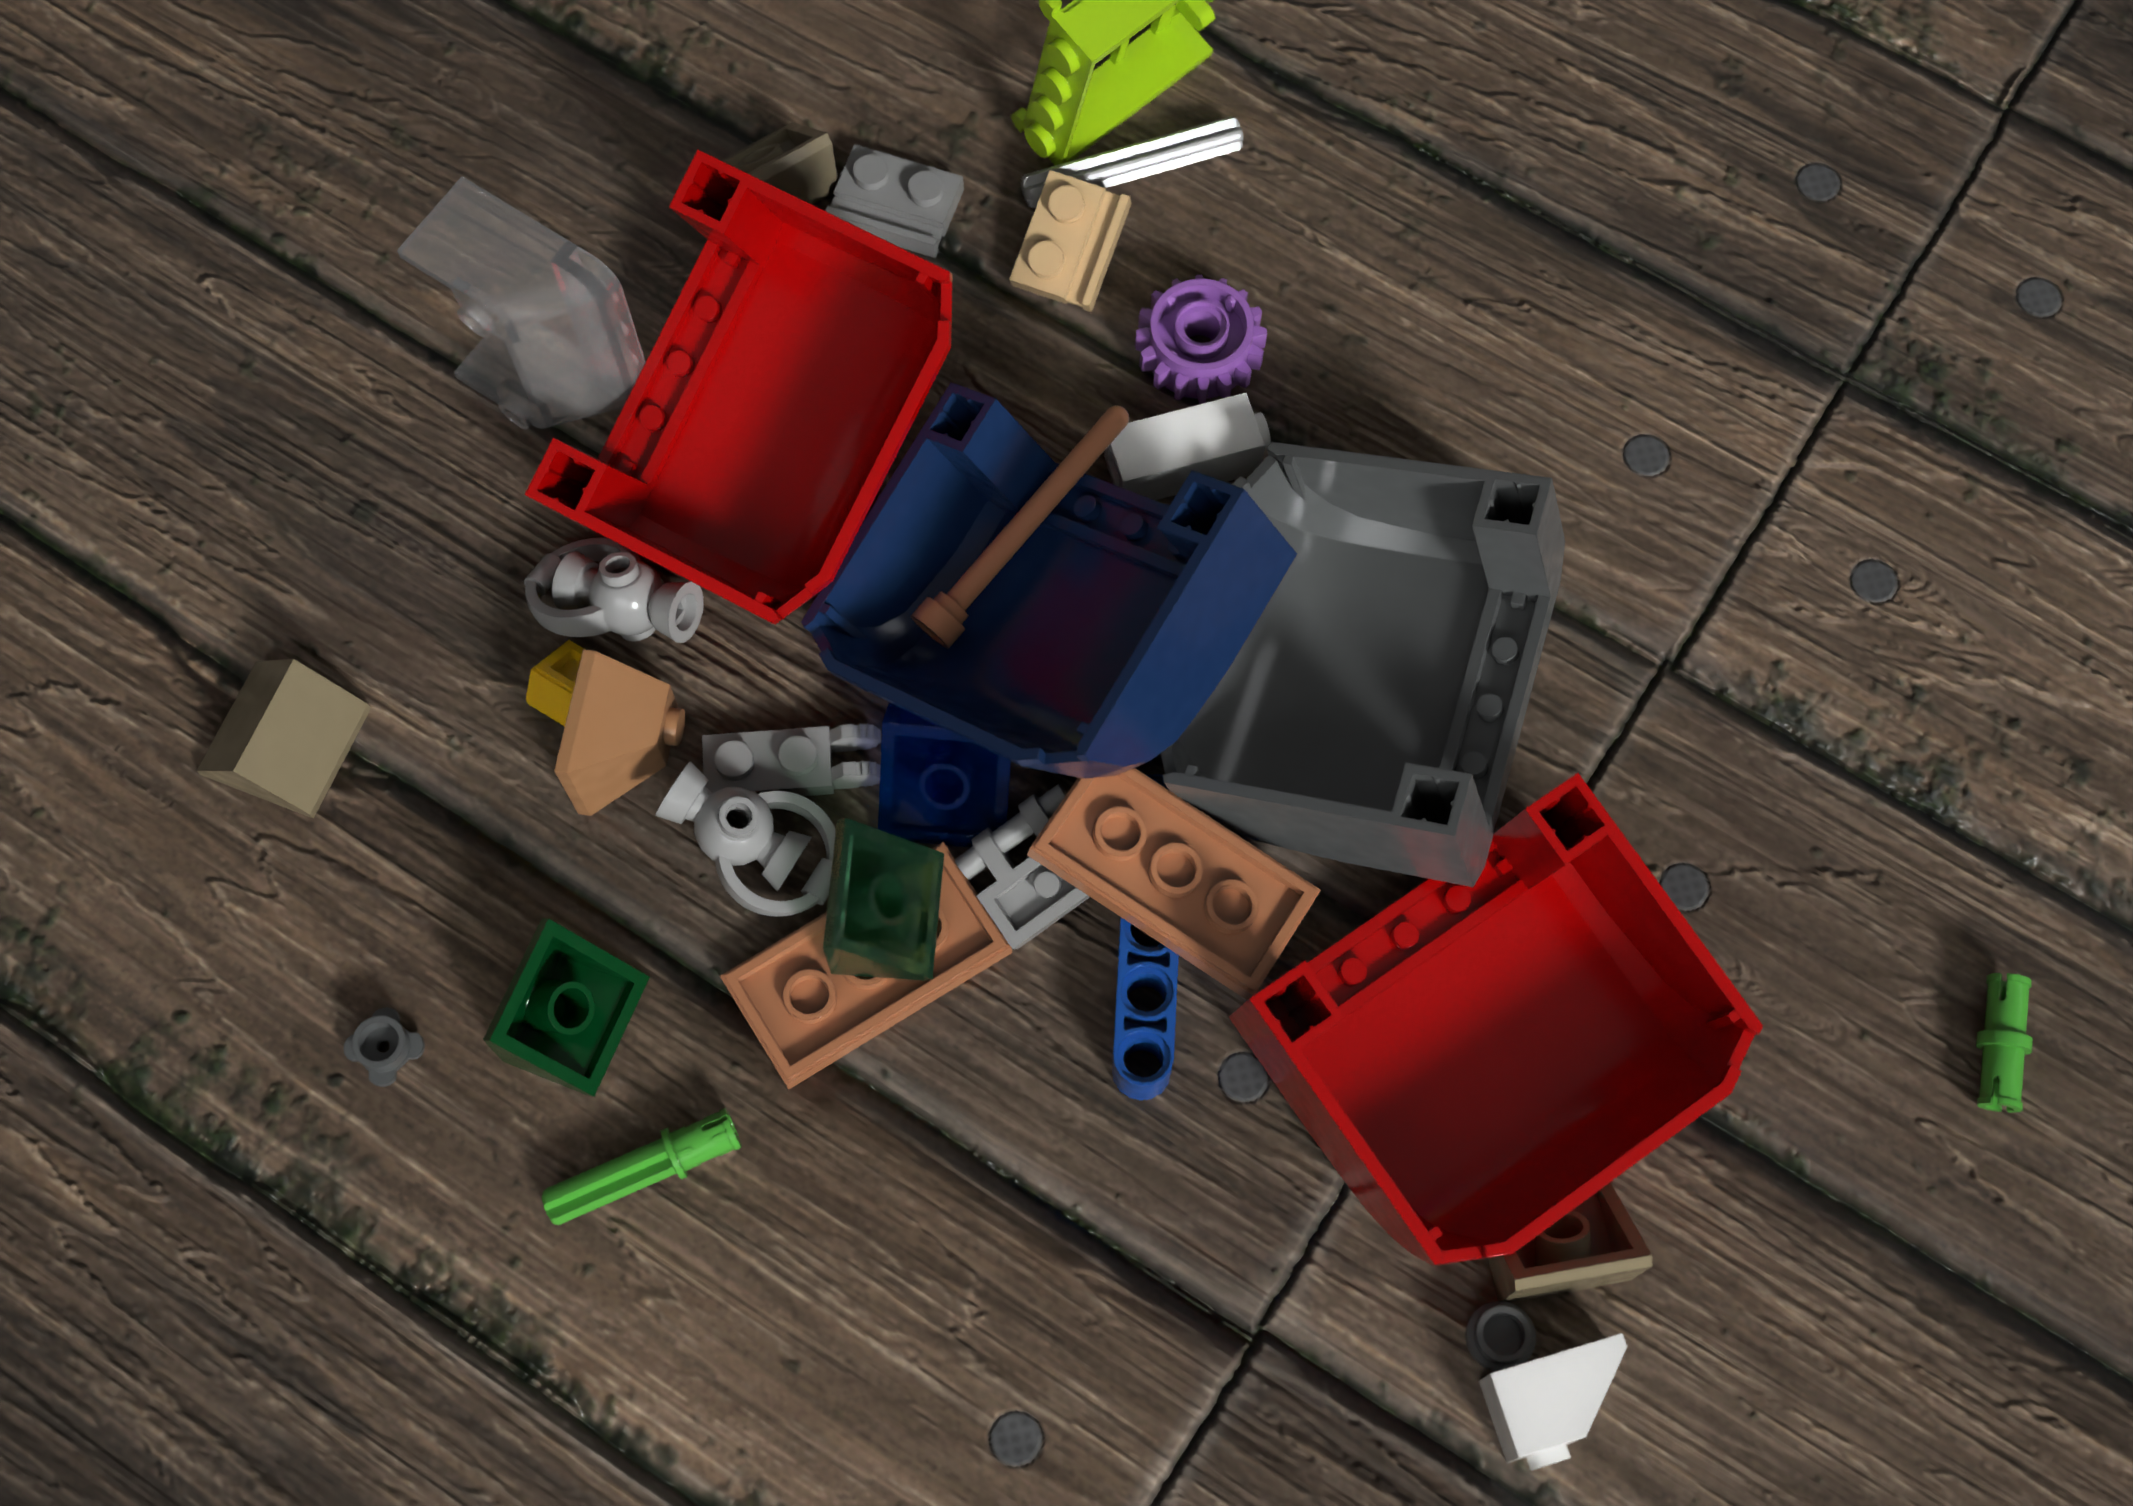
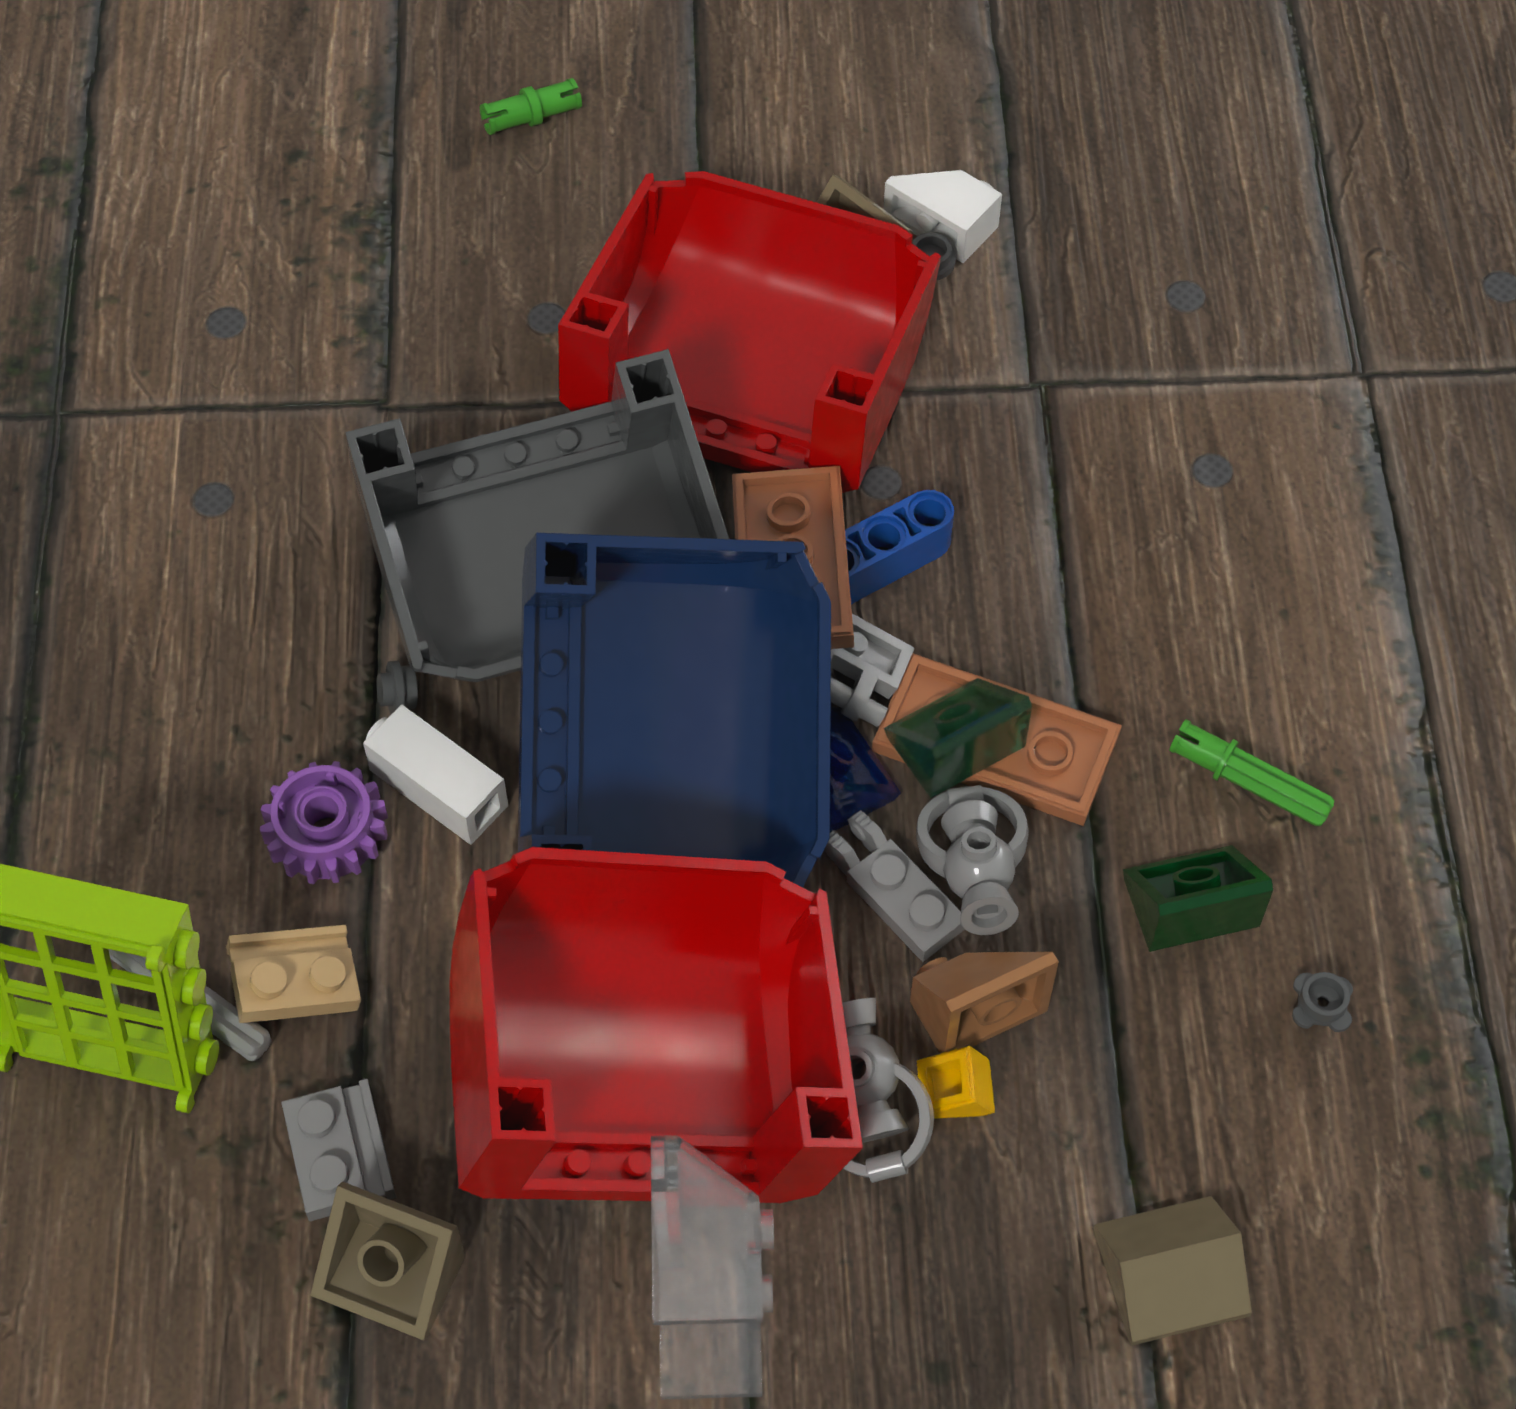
camera: 125 degrees left, 10 degrees down
(945, 614) = (704, 832): nougat piece -> none

